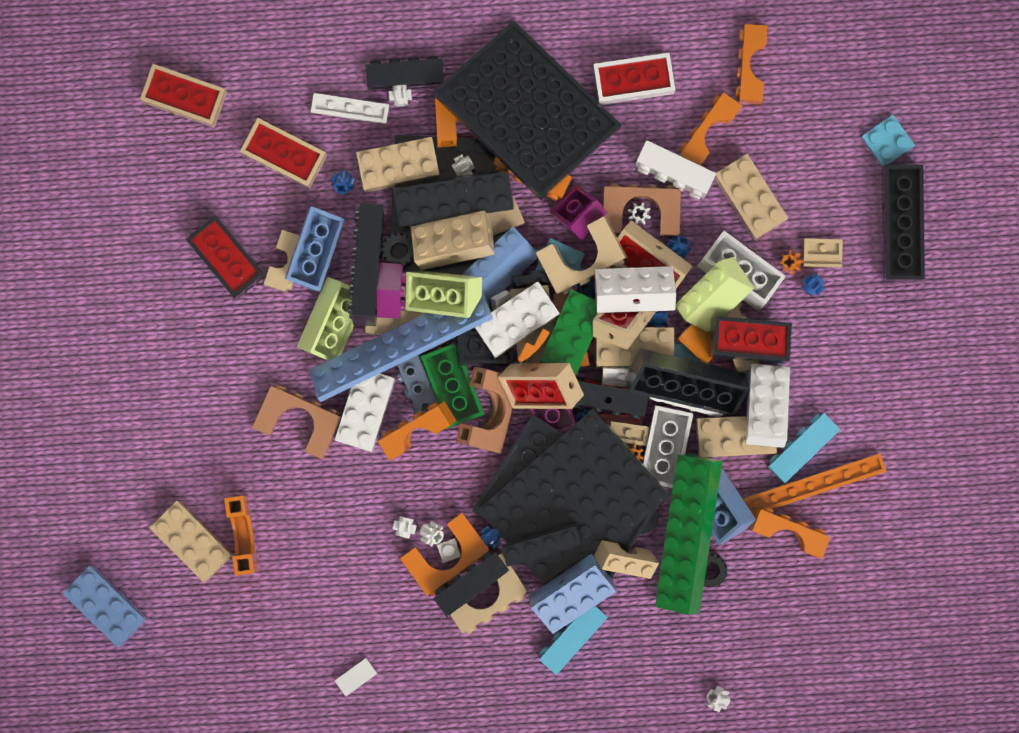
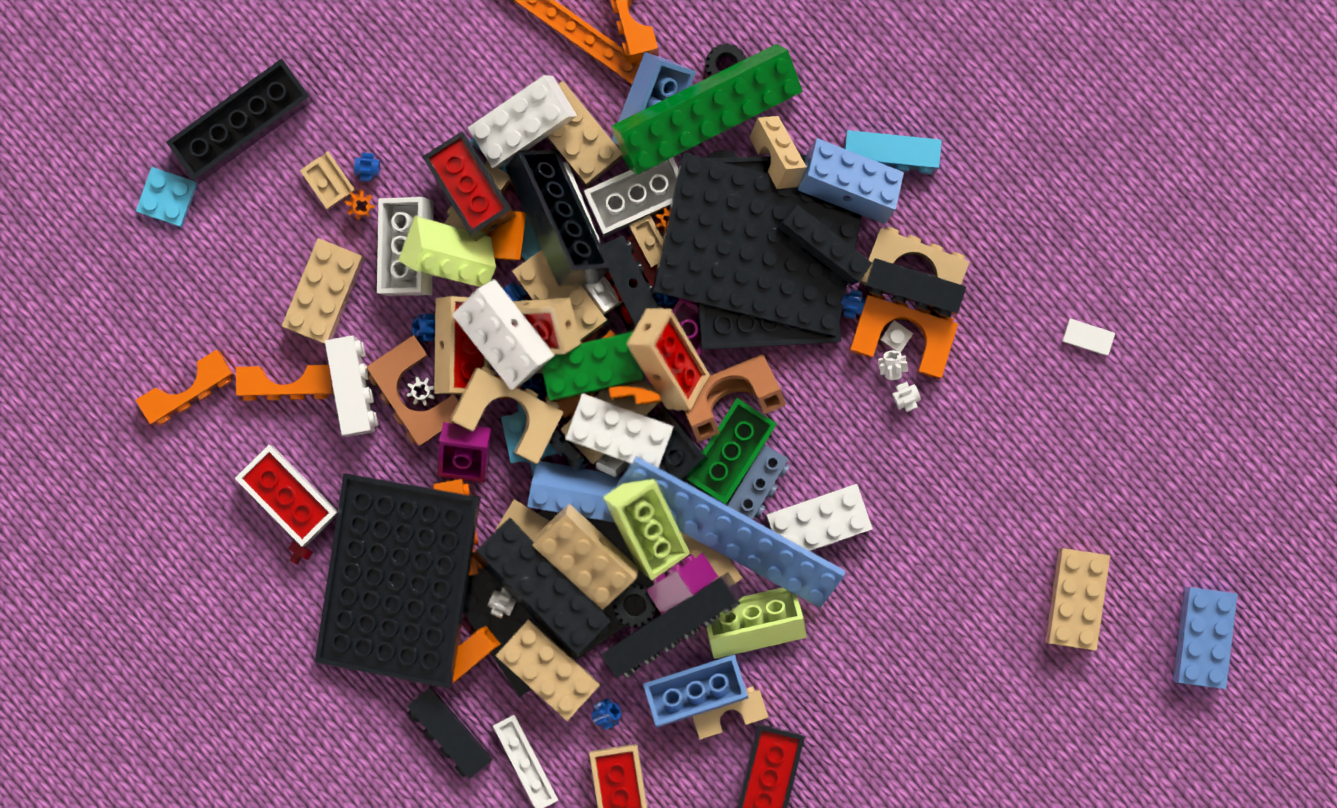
camera: 135 degrees left, 0 degrees up
(245, 551) = (1017, 567): orange arch -> none
(279, 401) = (872, 614): nougat arch -> none
(400, 95) = (475, 721): white gear -> none
(435, 420) = (779, 442): orange arch -> none
(591, 60) = (299, 552): none -> dark red tile
(803, 447) = (537, 60): medium azure brick -> none

